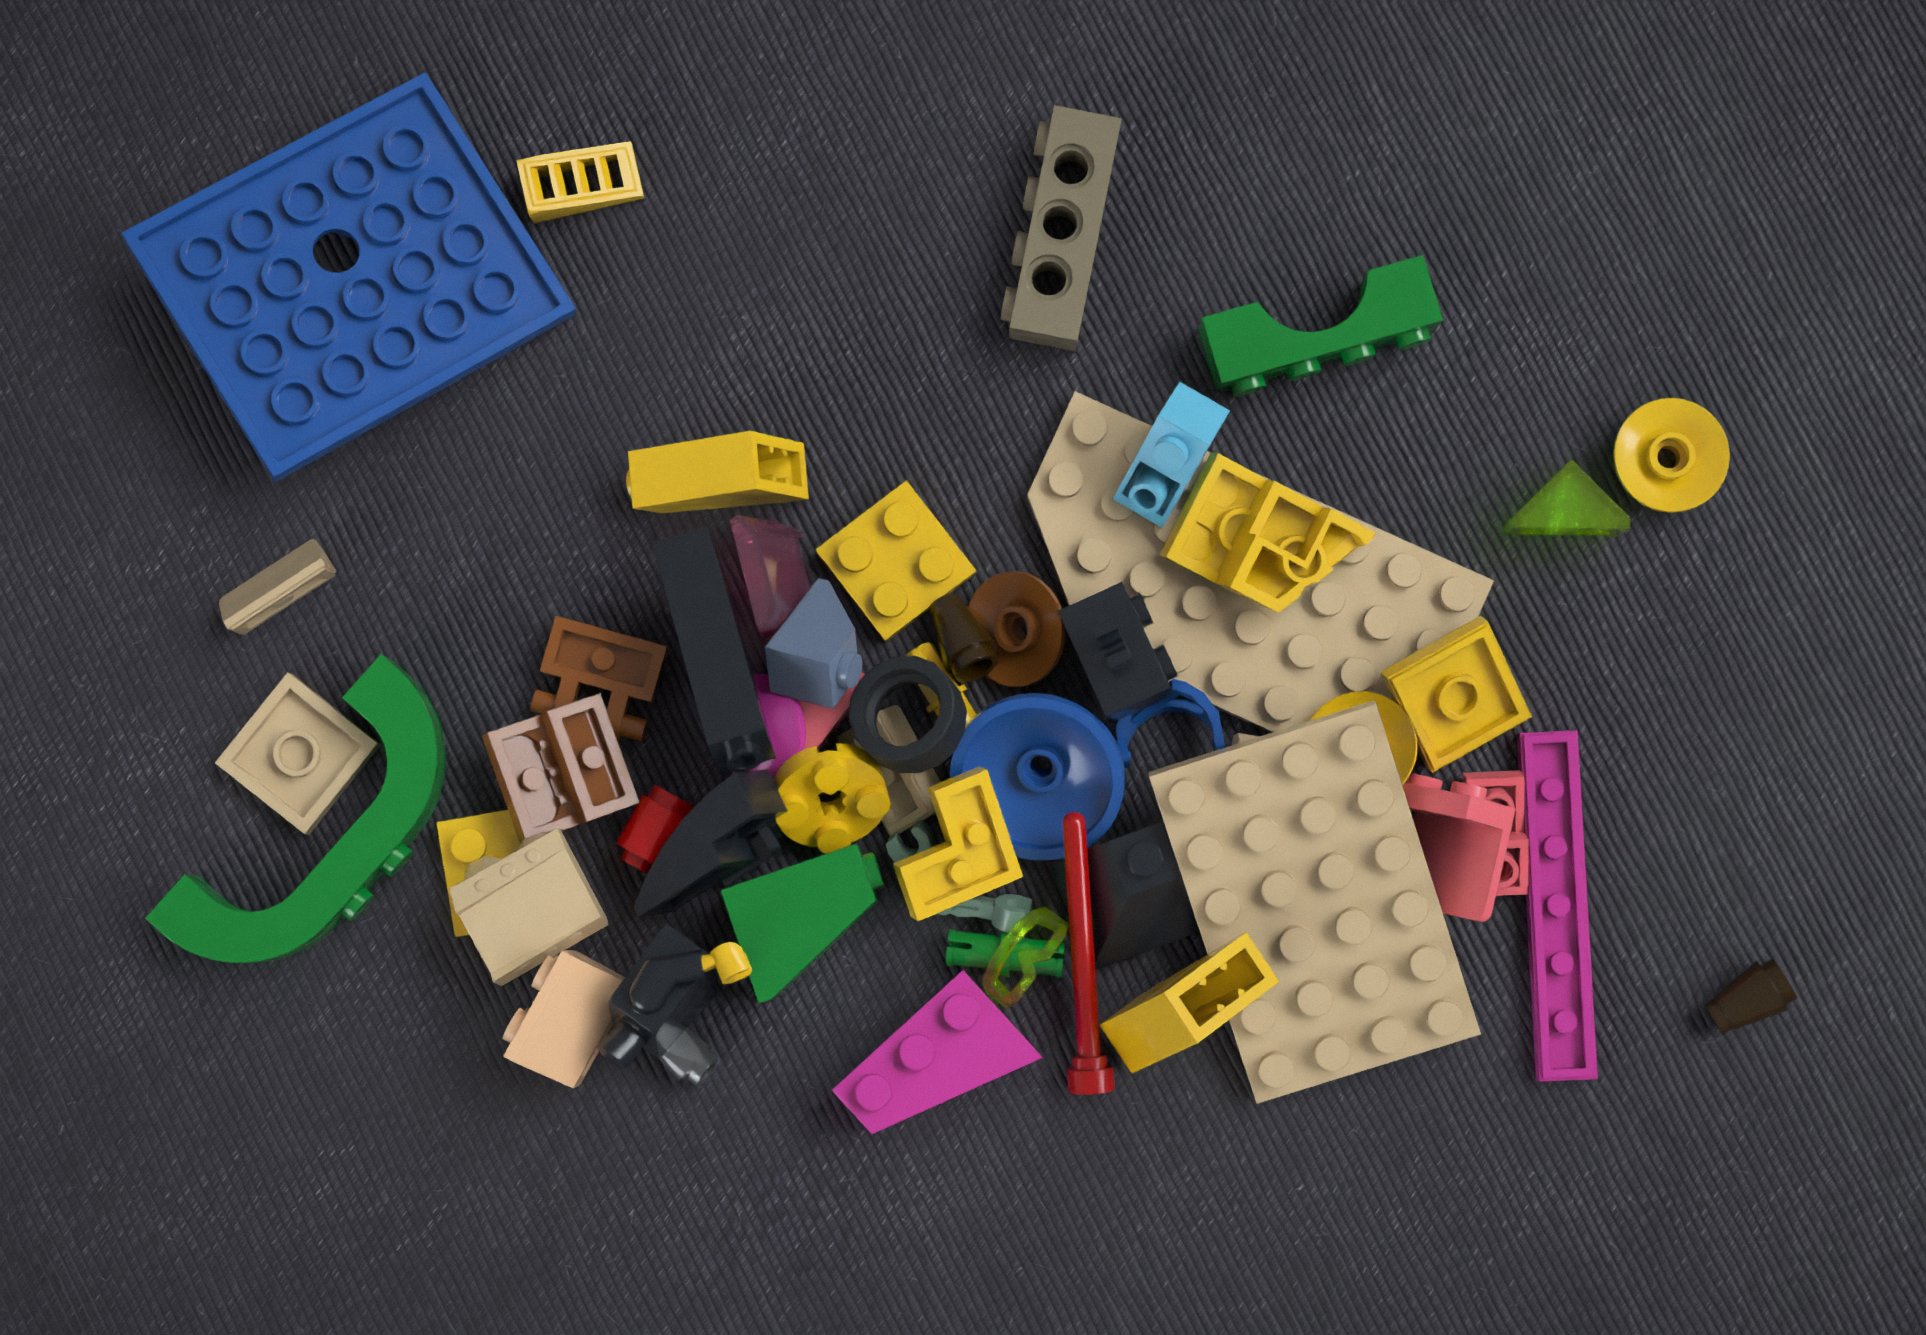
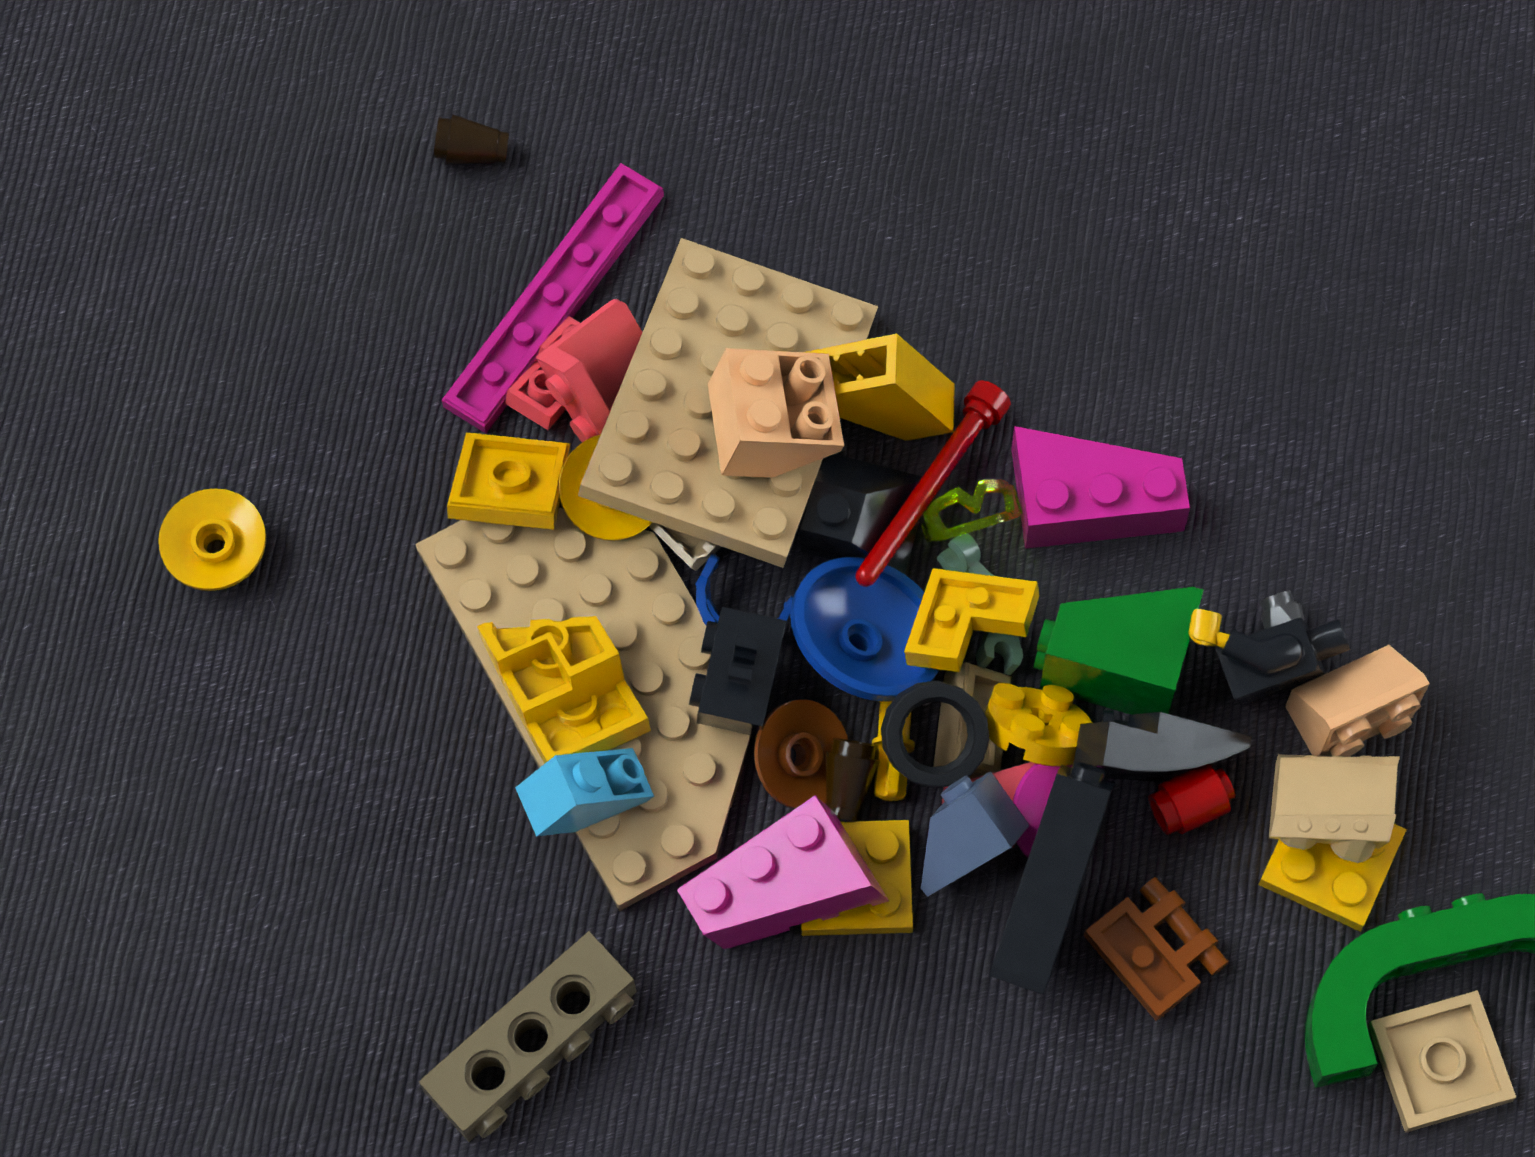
camera: 140 degrees left, 15 degrees down
(560, 768) = (1236, 891): slope -> none
(717, 473) = (950, 1035): yellow slope -> none
(771, 569) = (961, 924): clear pink slope -> none
(944, 501) = (781, 879): none -> wedge
(977, 949) = (994, 539): green pin -> none
(1250, 346) = (328, 795): green arch -> none
(1256, 897) = (773, 411): none -> light nougat slope
(1569, 507) = (321, 559): clear neon green slope -> none

